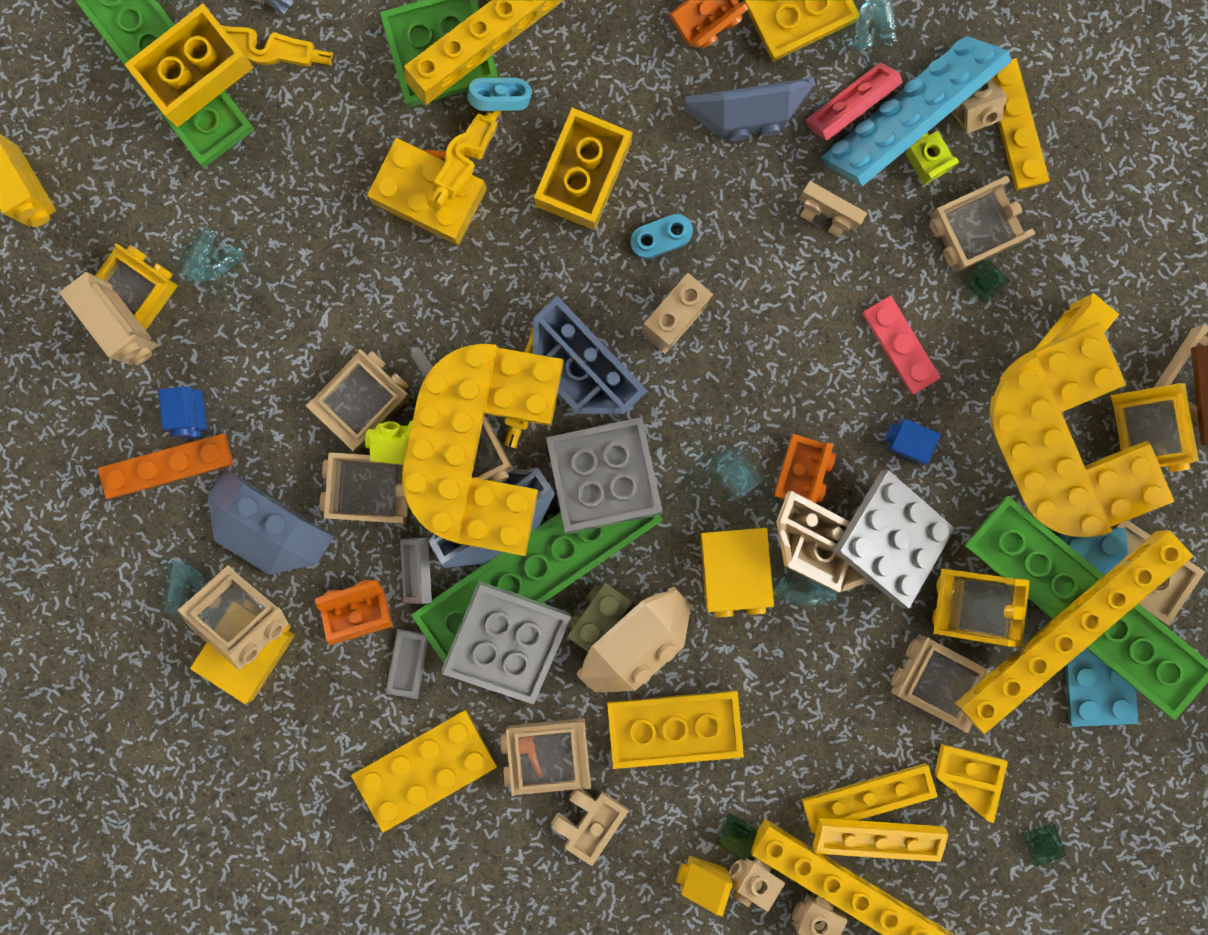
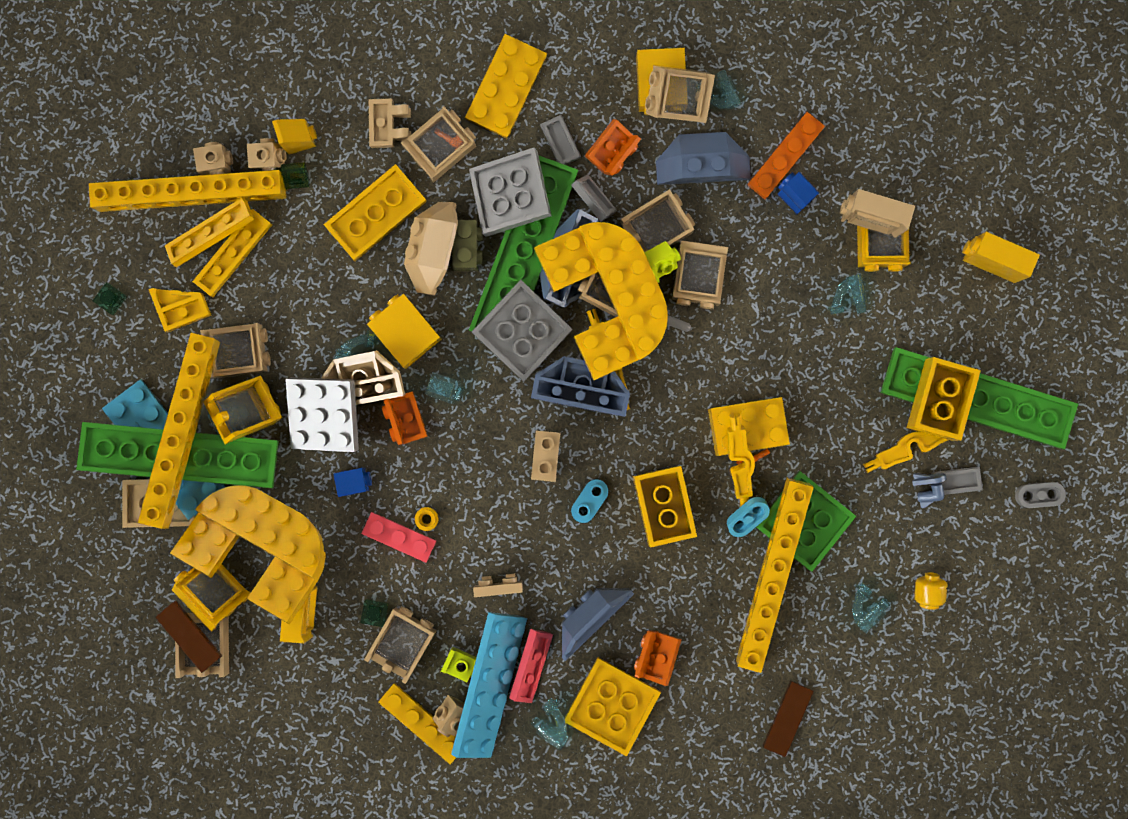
camera: 155 degrees right, 0 degrees up
(864, 336) = (434, 519): none -> yellow plate

